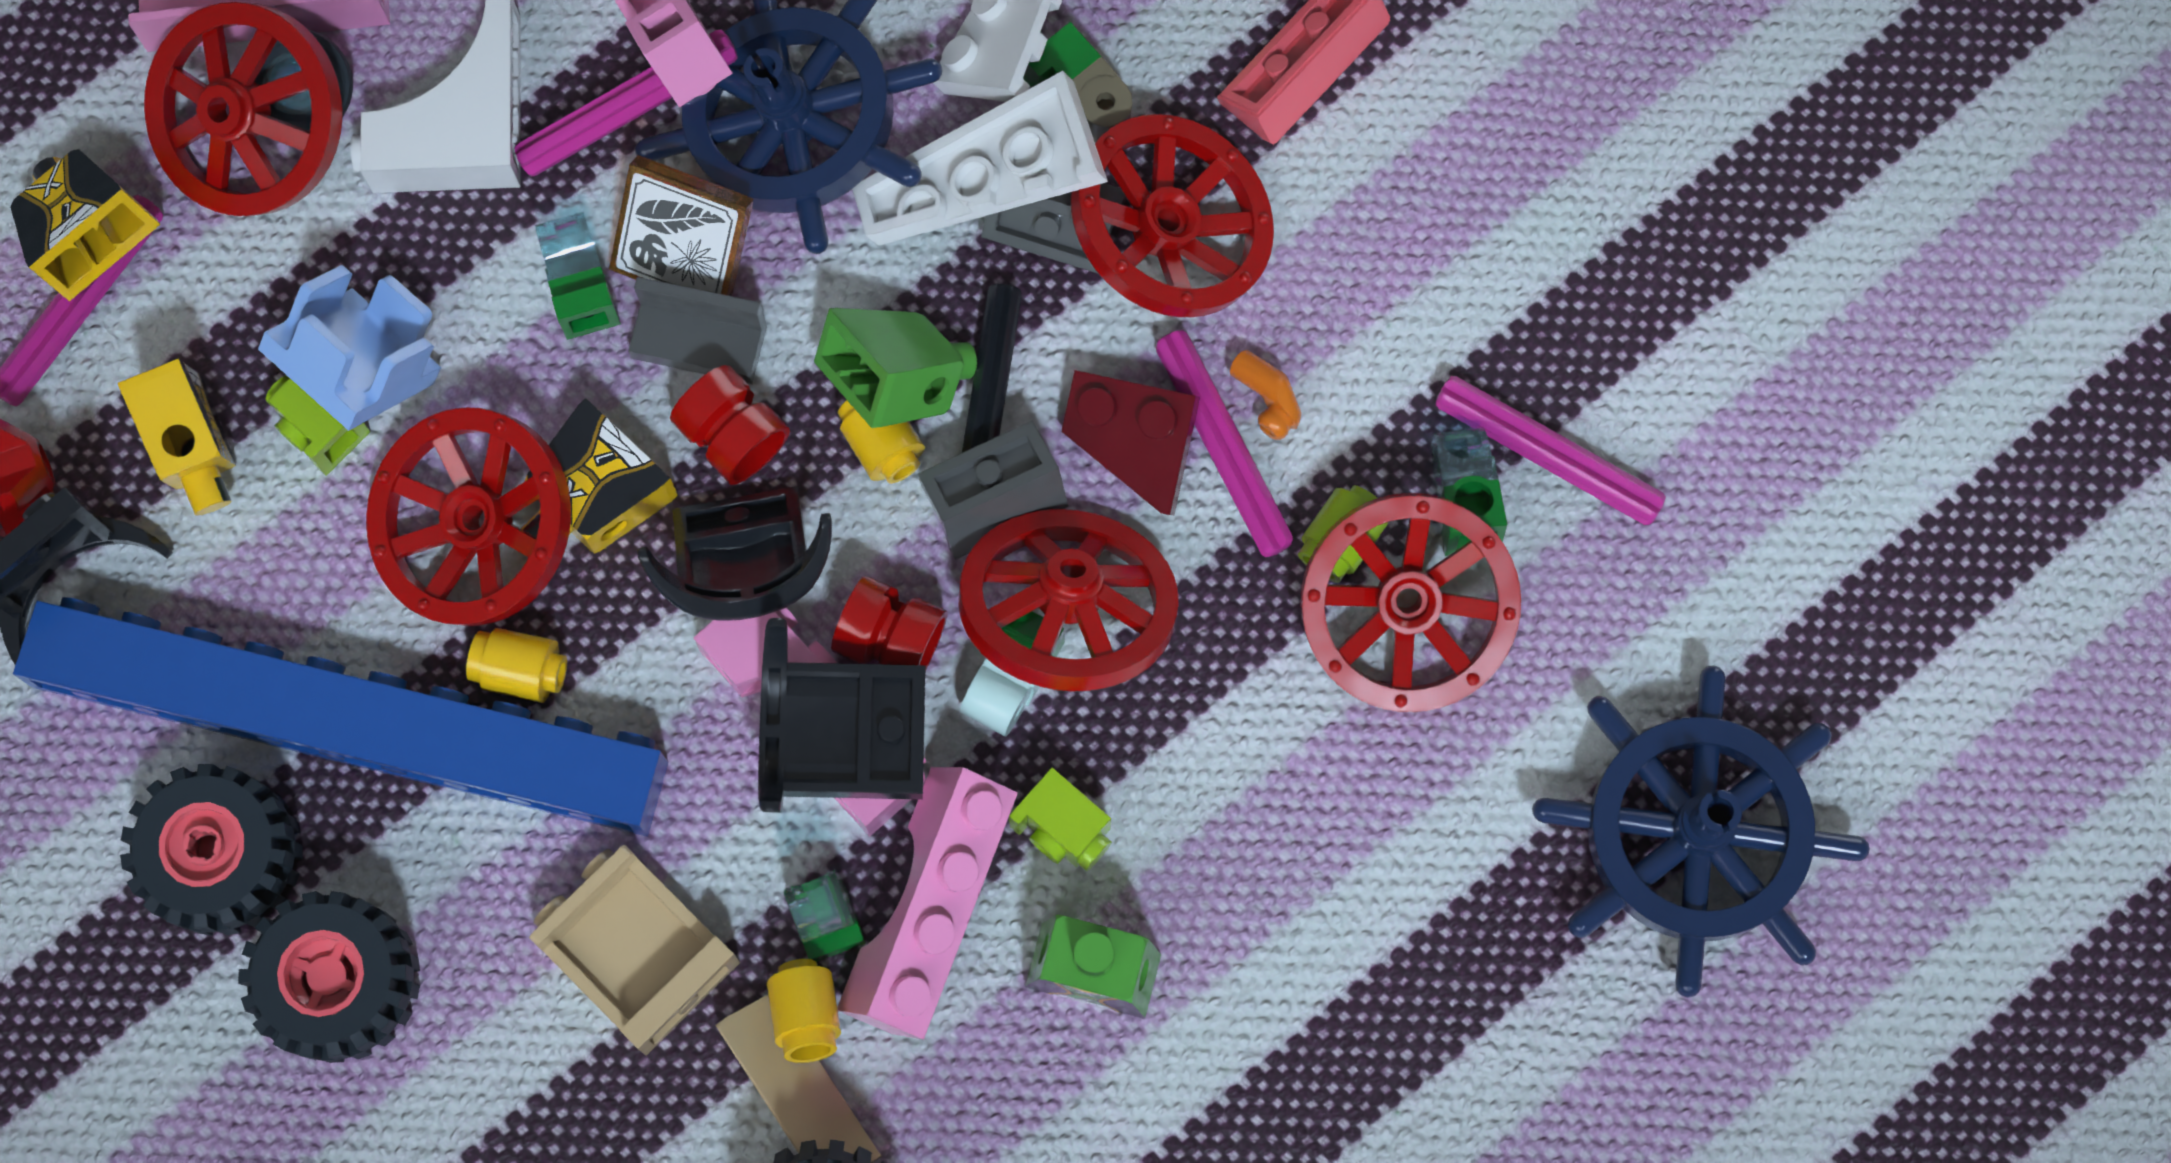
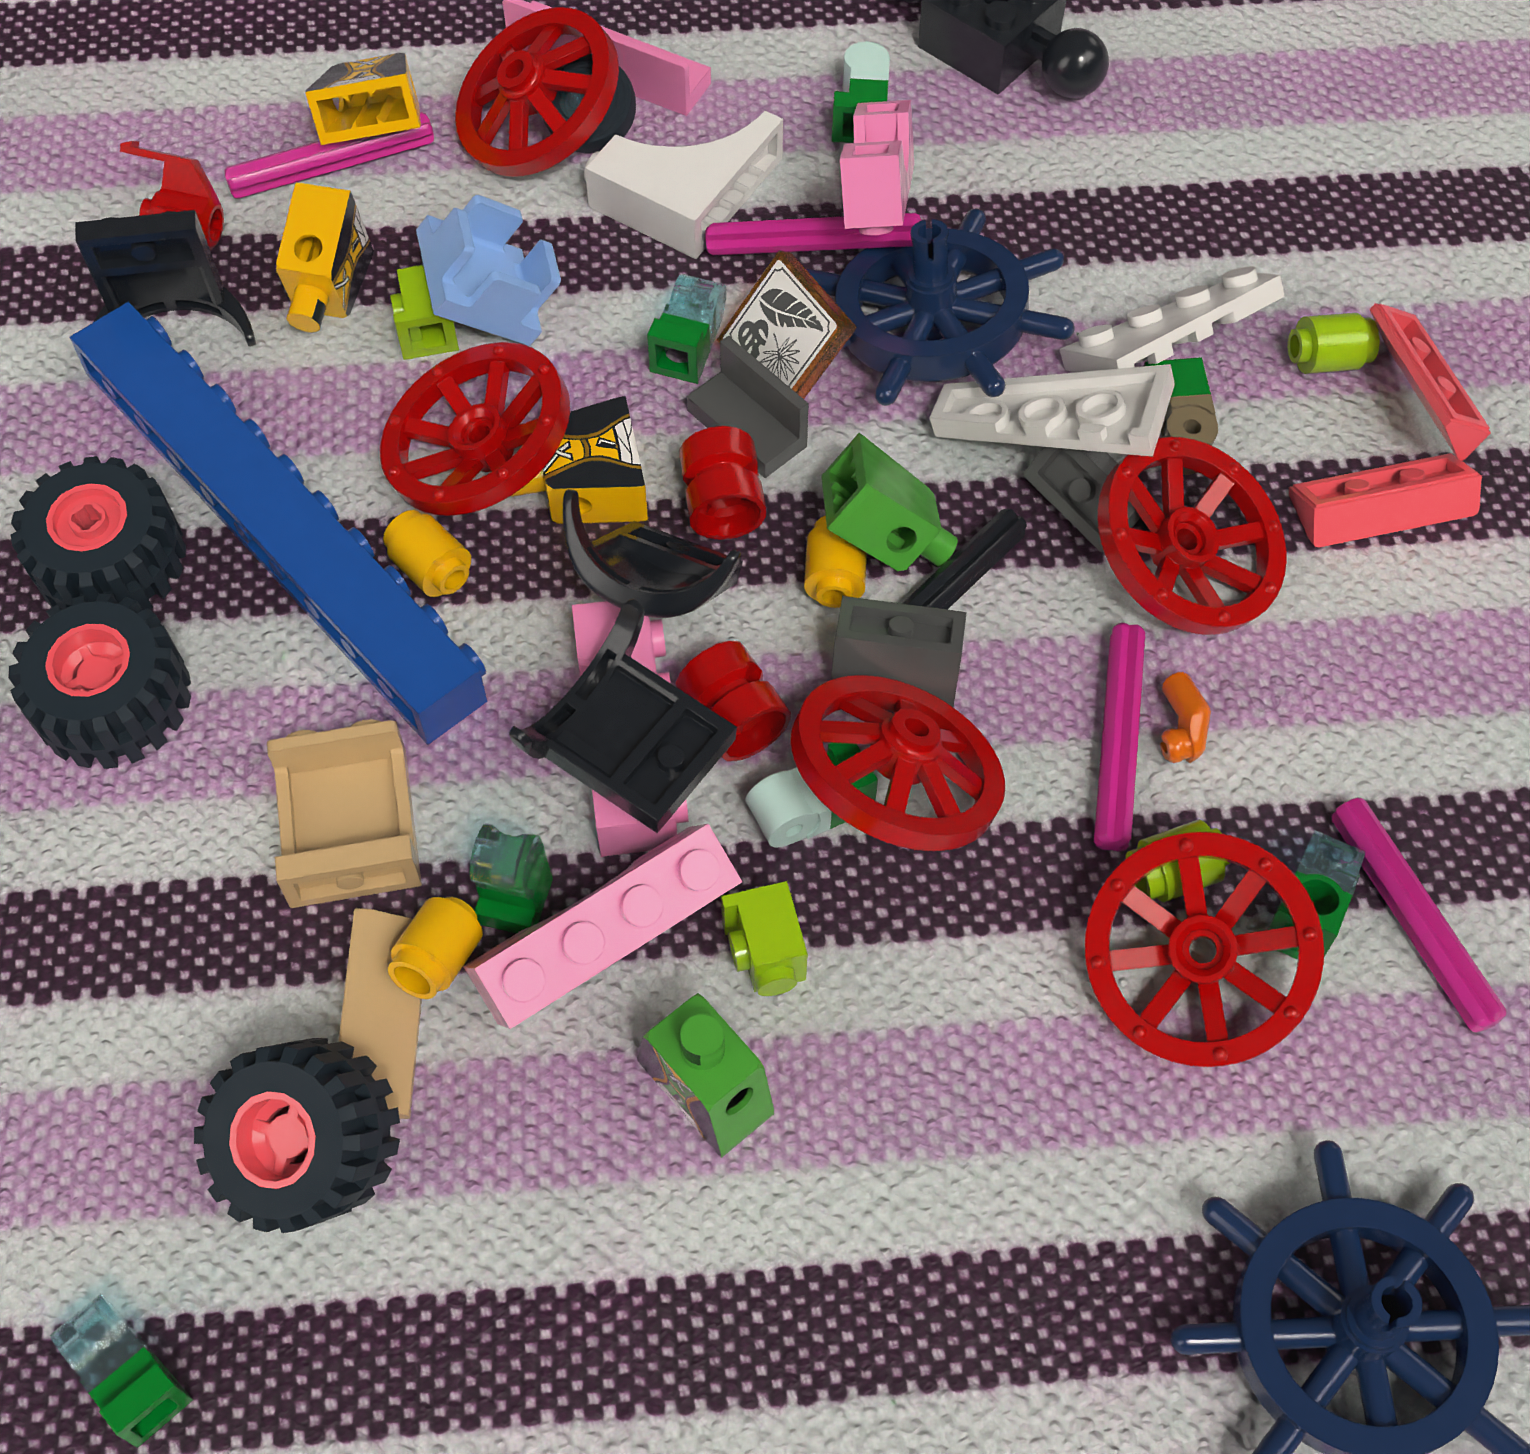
camera: 35 degrees right, 15 degrees down
(1134, 433) = (1048, 680): dark red wing -> none

